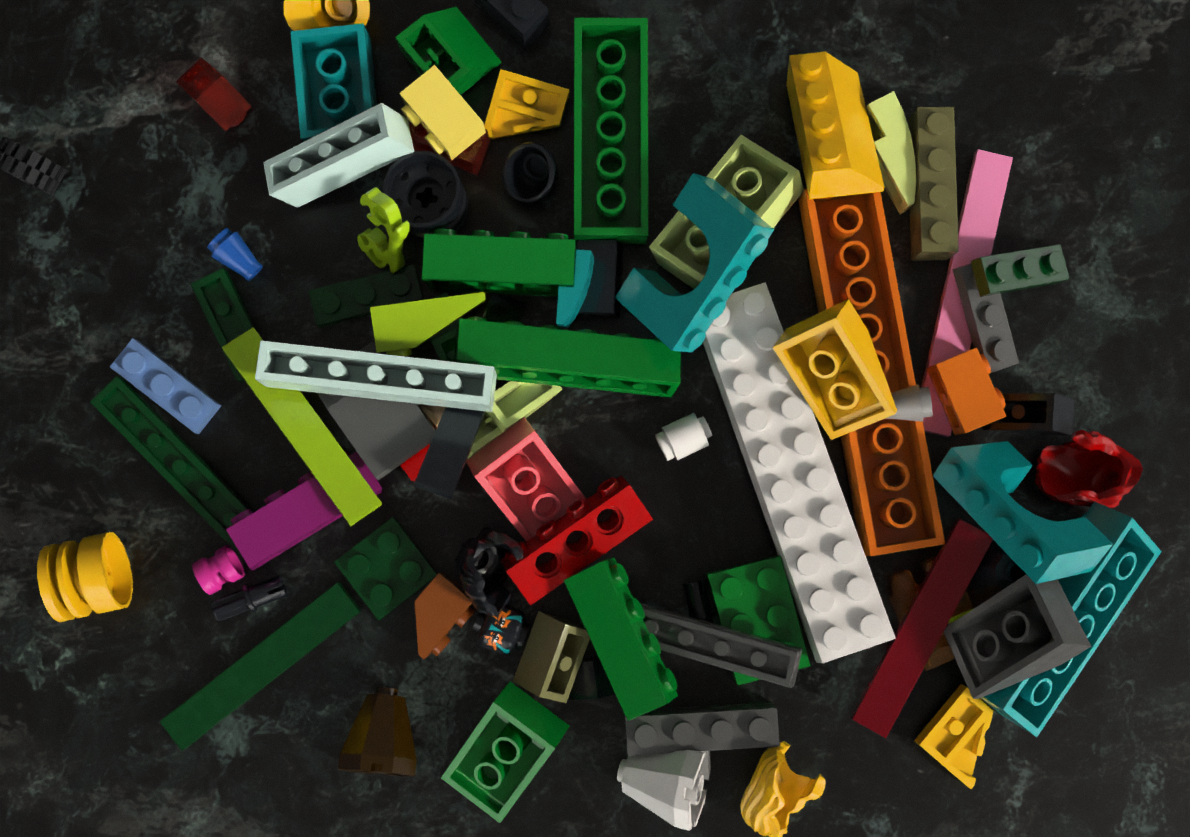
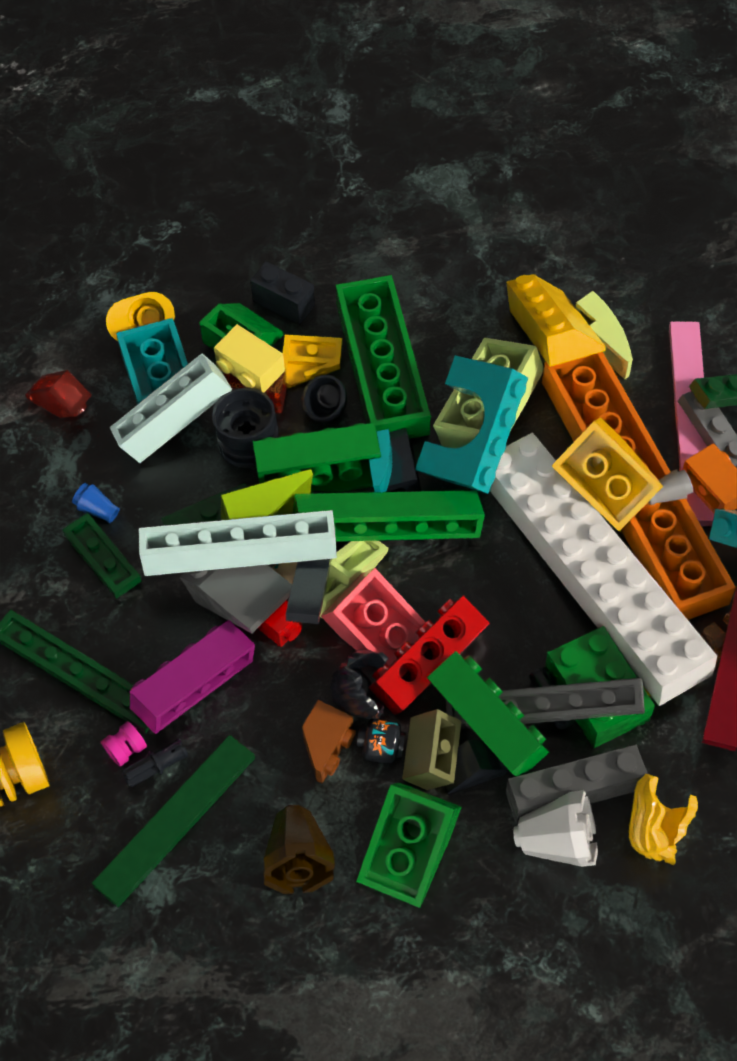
camera: 10 degrees left, 25 degrees down
(165, 386) = (53, 614): medium blue plate -> none
(306, 434) = (180, 609): lime tile -> none
(374, 242) = (210, 472): lime helmet -> none
(386, 568) = (269, 717): dark green plate -> none
(683, 437) = (498, 563): white brick -> none
(935, 206) = (650, 363): olive brick -> none

